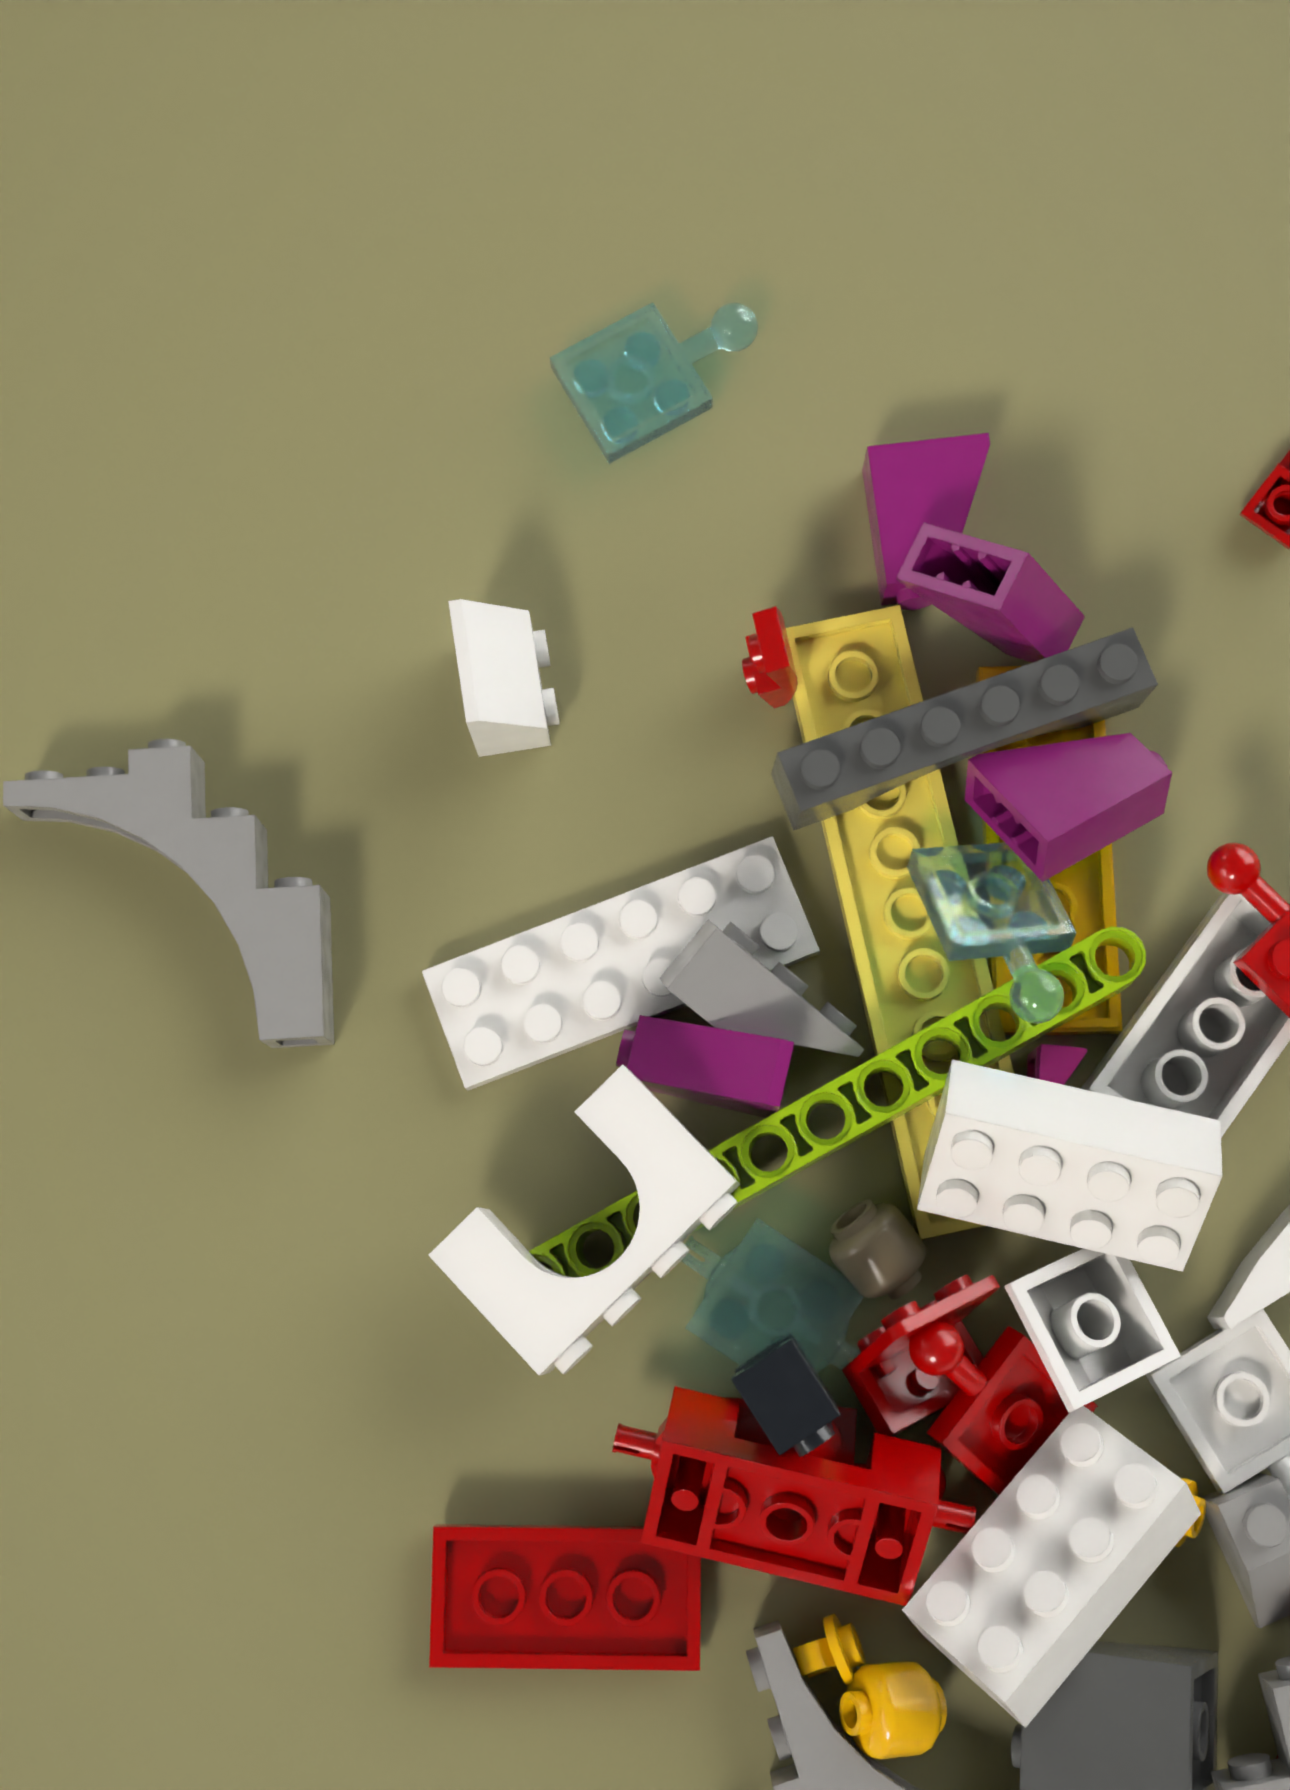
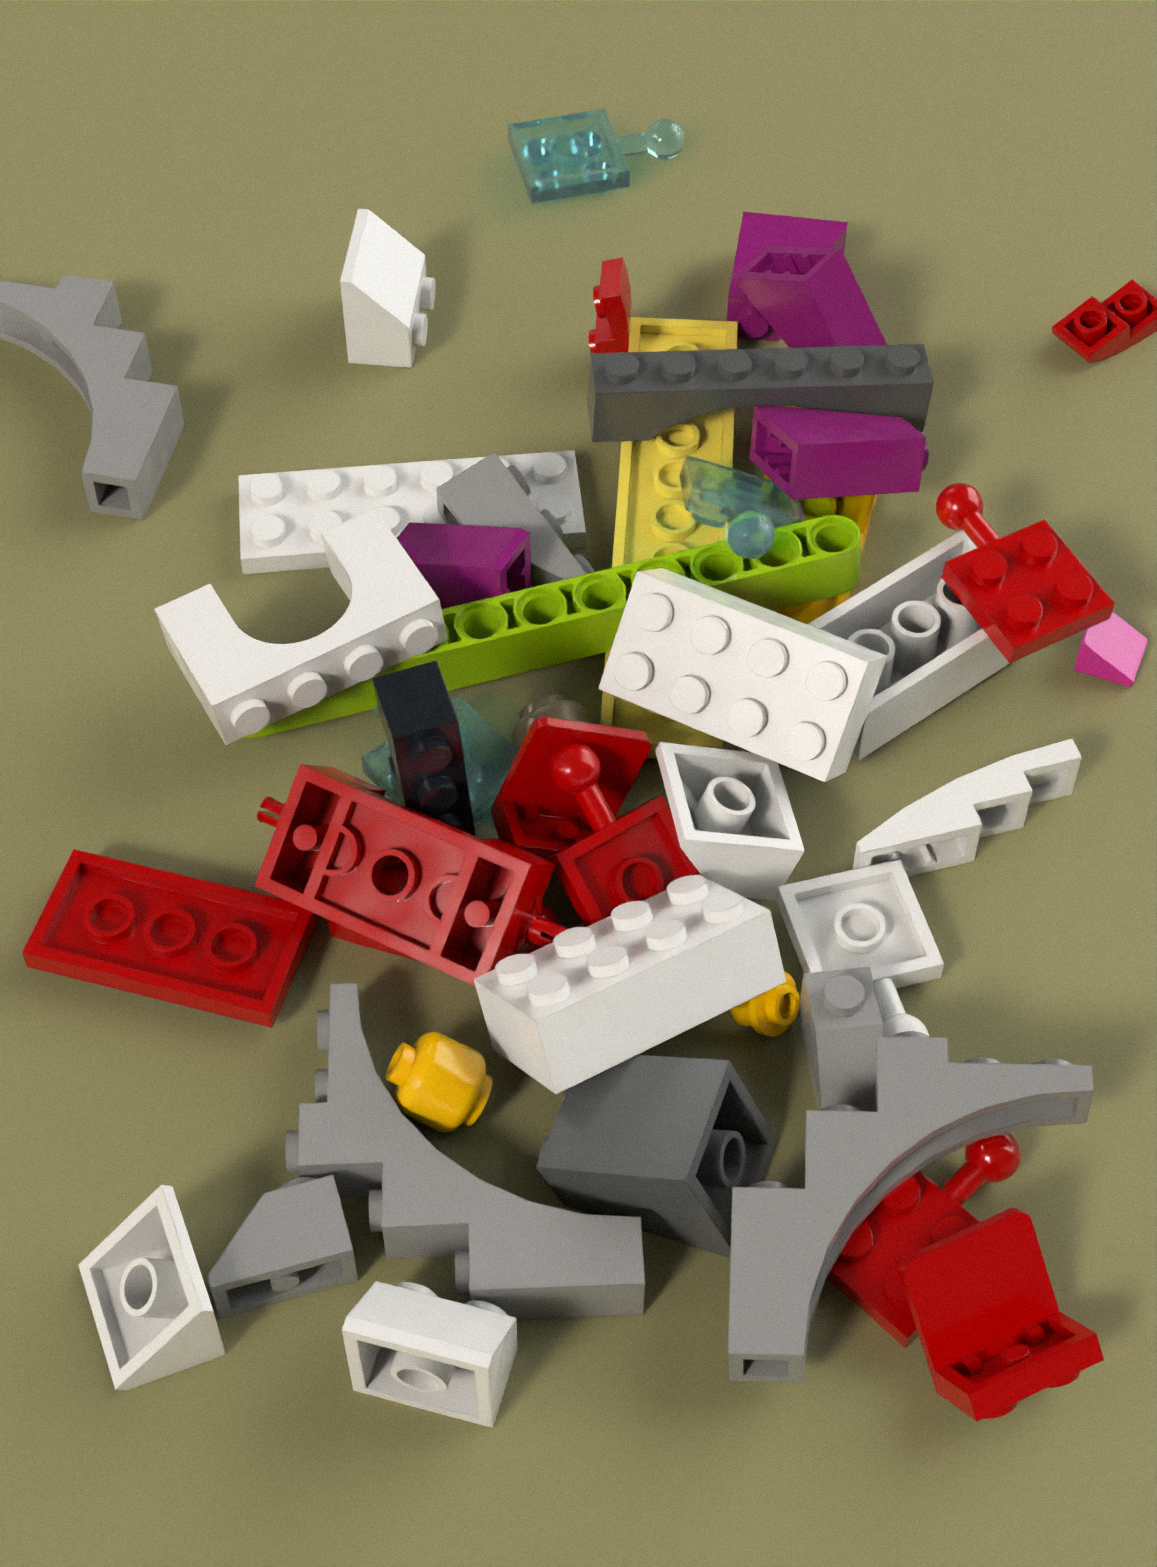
camera: 10 degrees right, 25 degrees down
(838, 1650) = (393, 1030): yellow plate -> none

